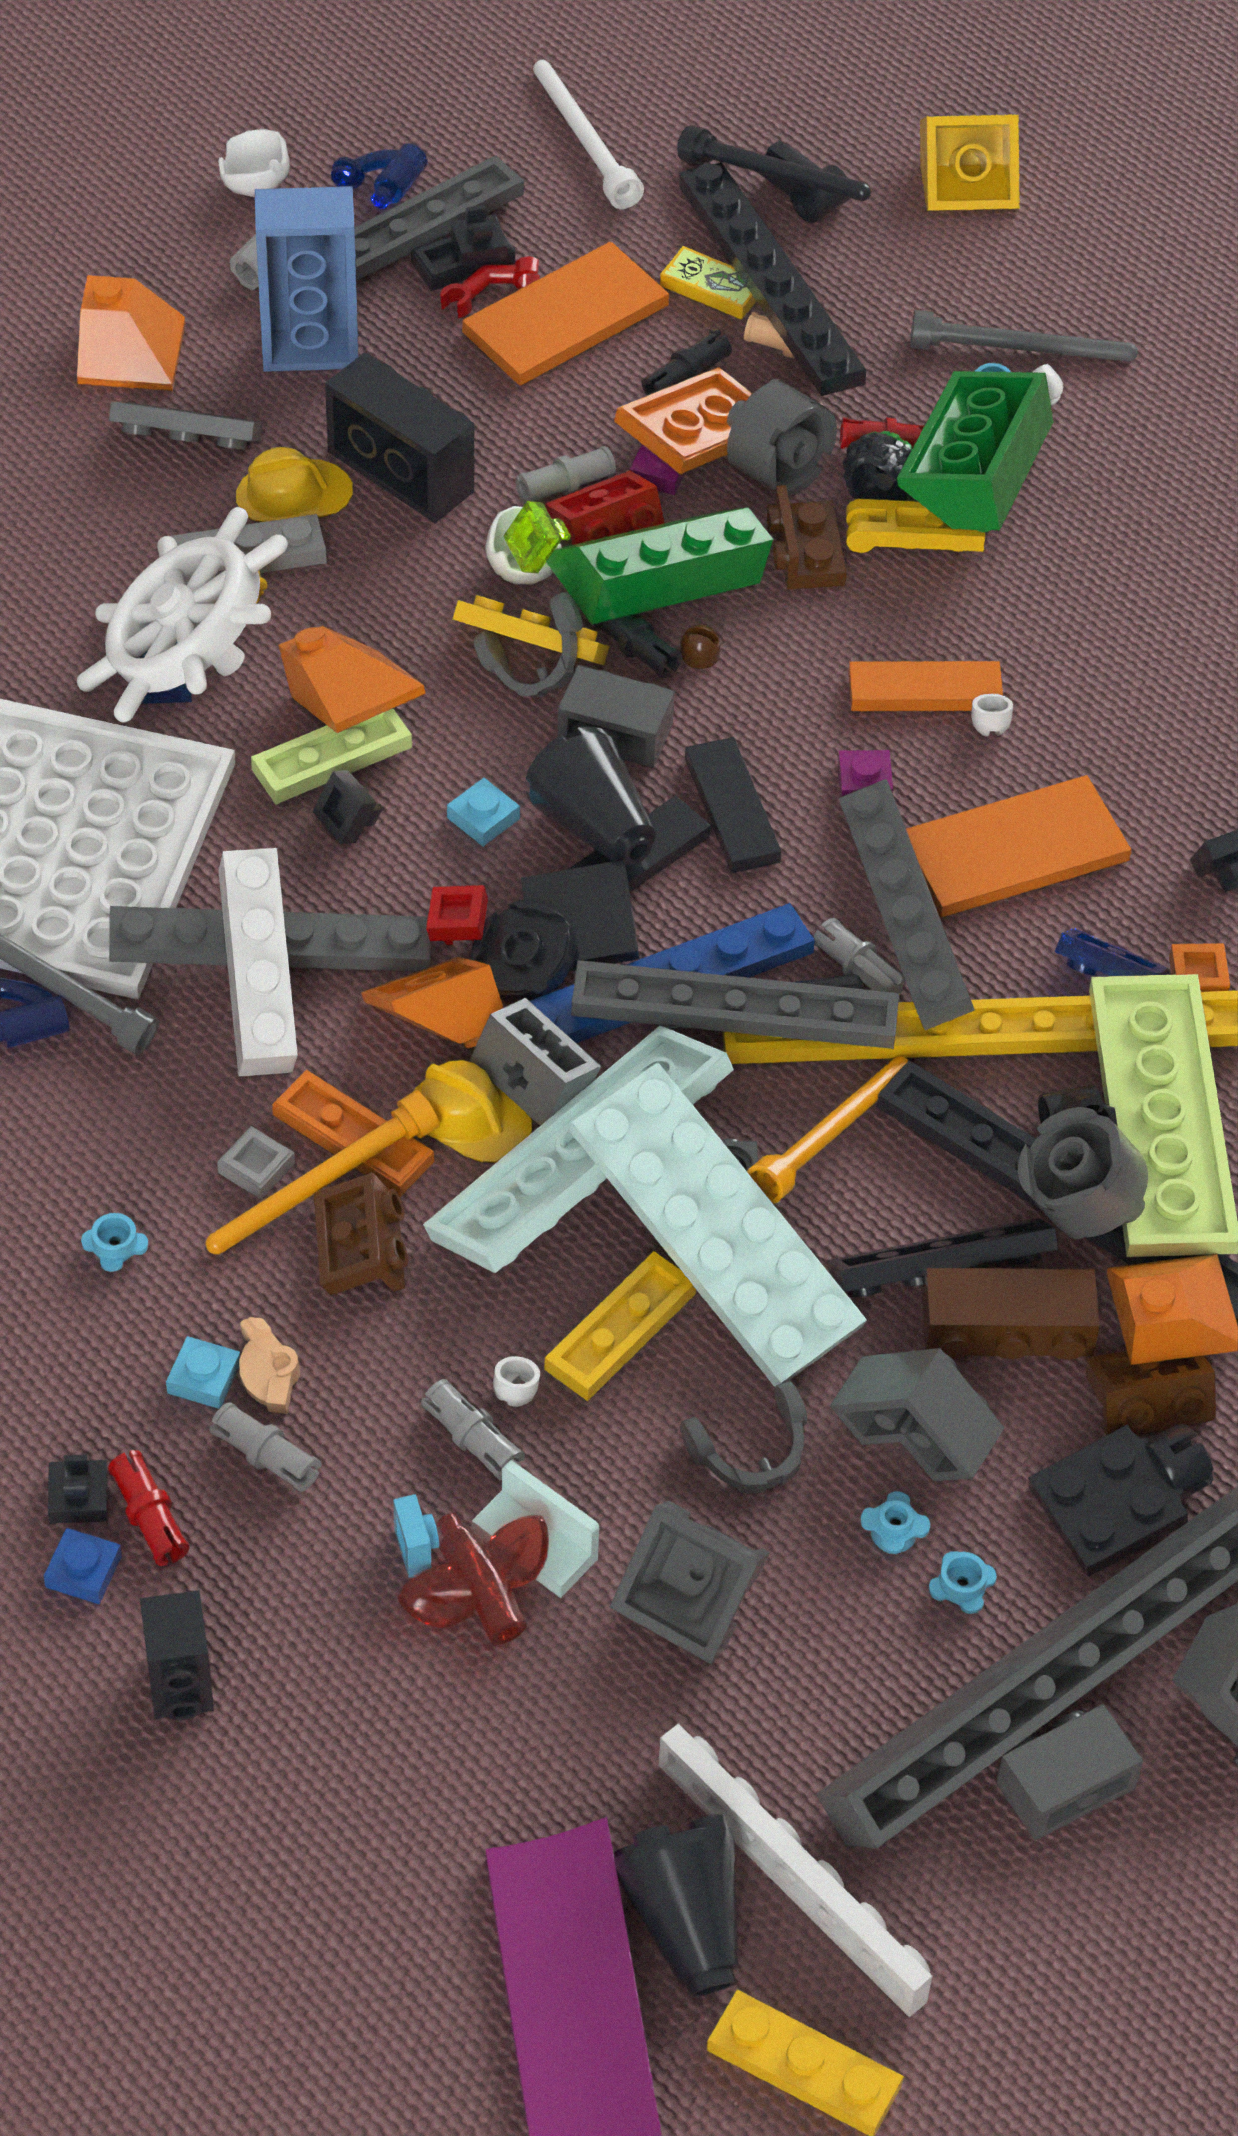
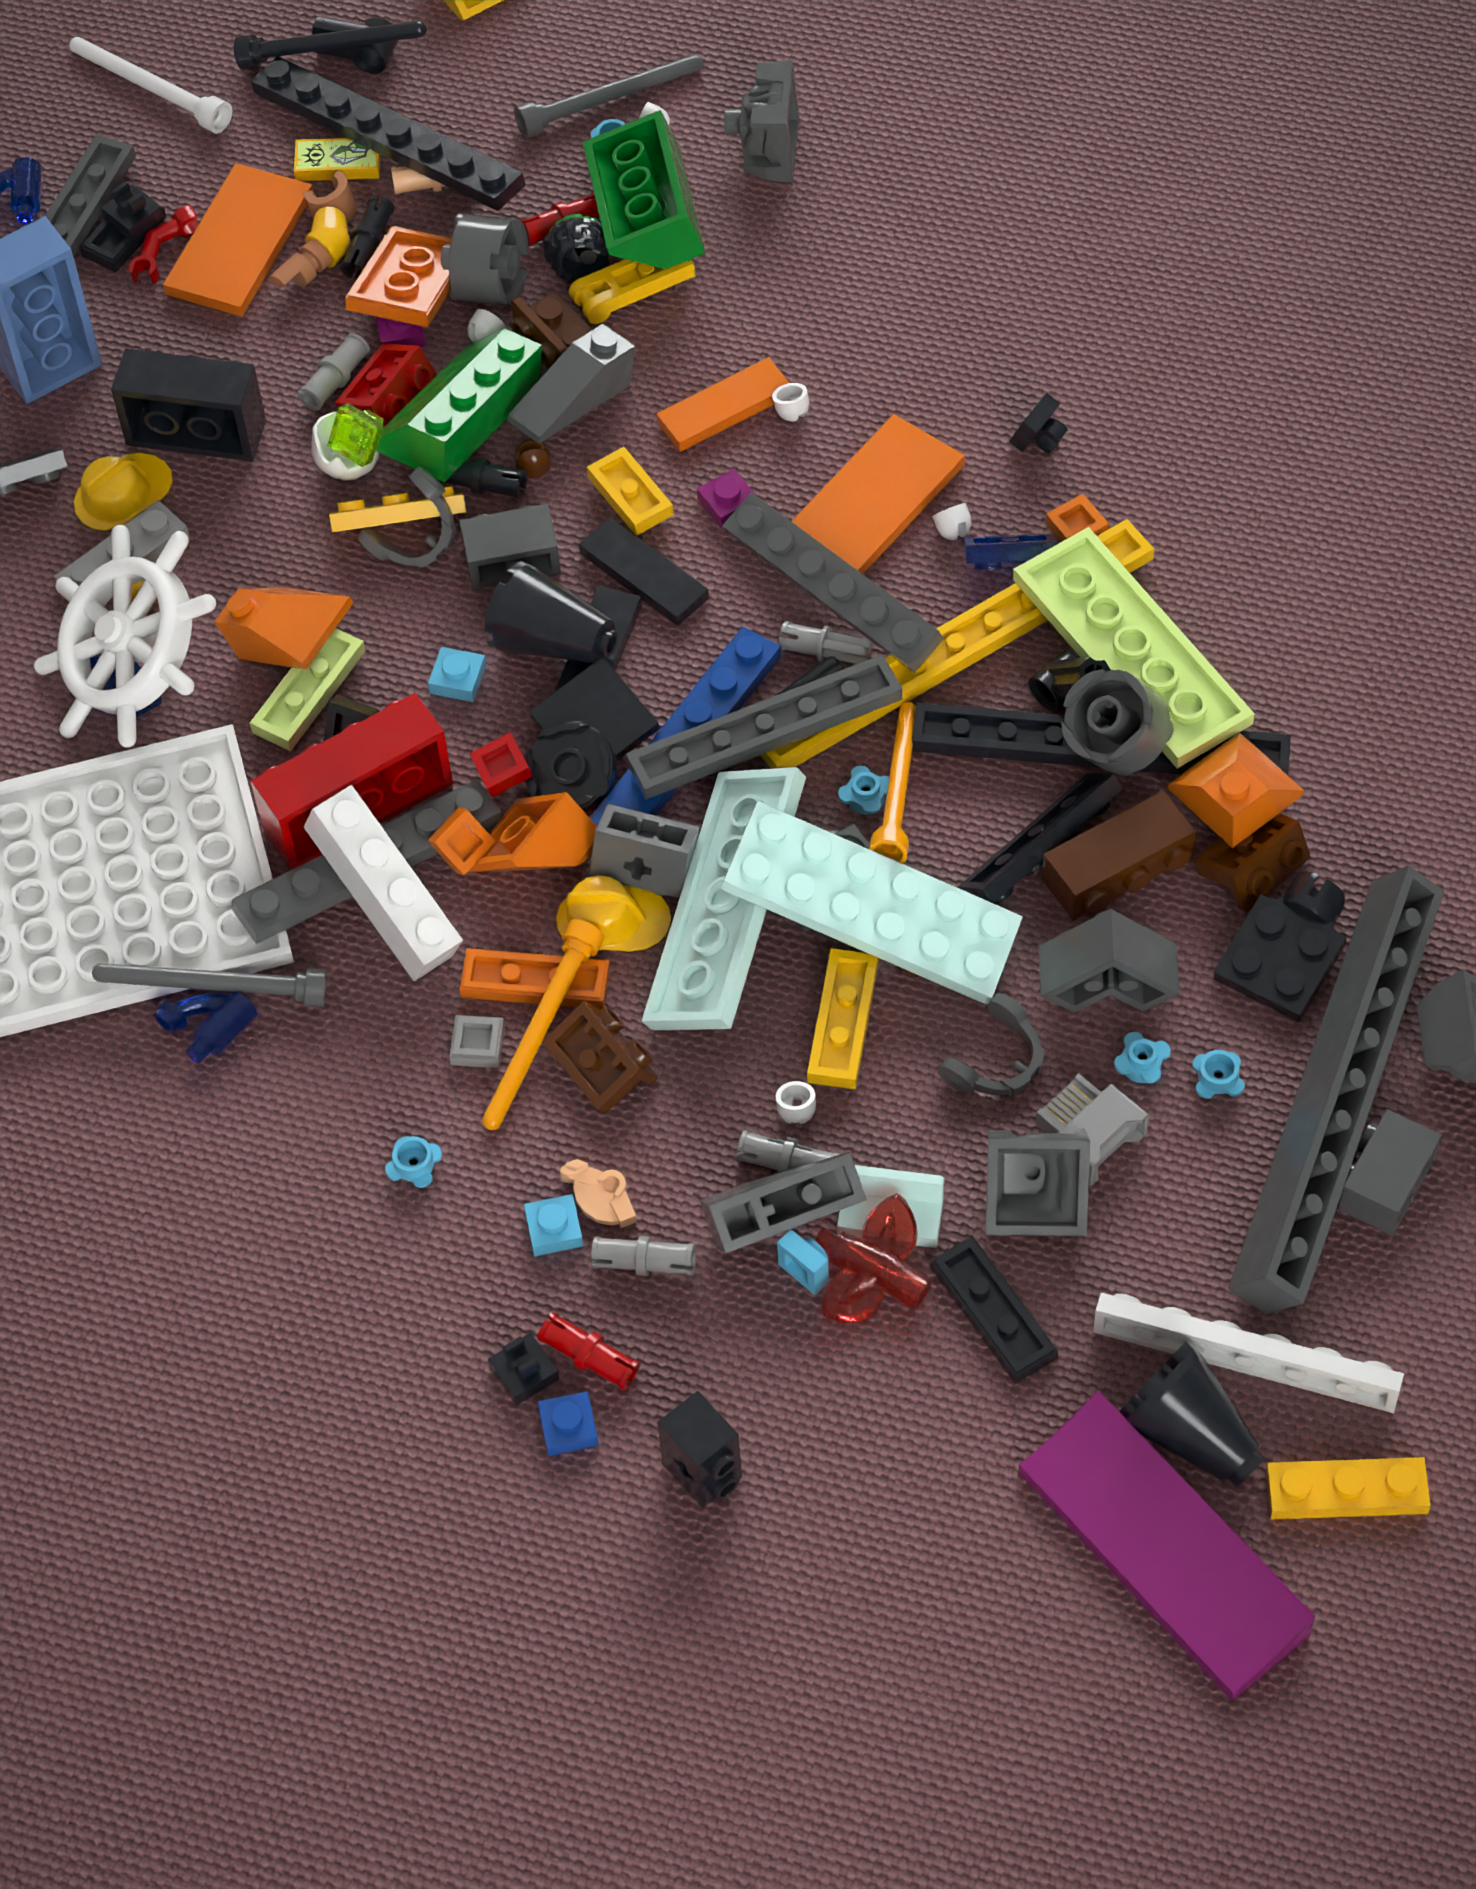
camera: 25 degrees left, 5 degrees up
(329, 850) = (387, 758): none -> red brick
(367, 964) = (461, 841): none -> orange plate
(425, 1463) = (782, 1201): none -> dark grey slope
(572, 1687) = (994, 1309): none -> black tile
(648, 347) = (328, 235): none -> nougat piece
(738, 497) = (483, 324): none -> white hinge
(771, 722) = (630, 491): none -> yellow plate
(786, 1117) = (864, 801): none -> medium azure plate
(788, 593) = (575, 384): none -> dark grey slope
(802, 1560) = (1105, 1115): none -> light grey piece
(1076, 904) = (953, 522): none -> white hinge
(1155, 437) = (768, 122): none -> dark grey brick

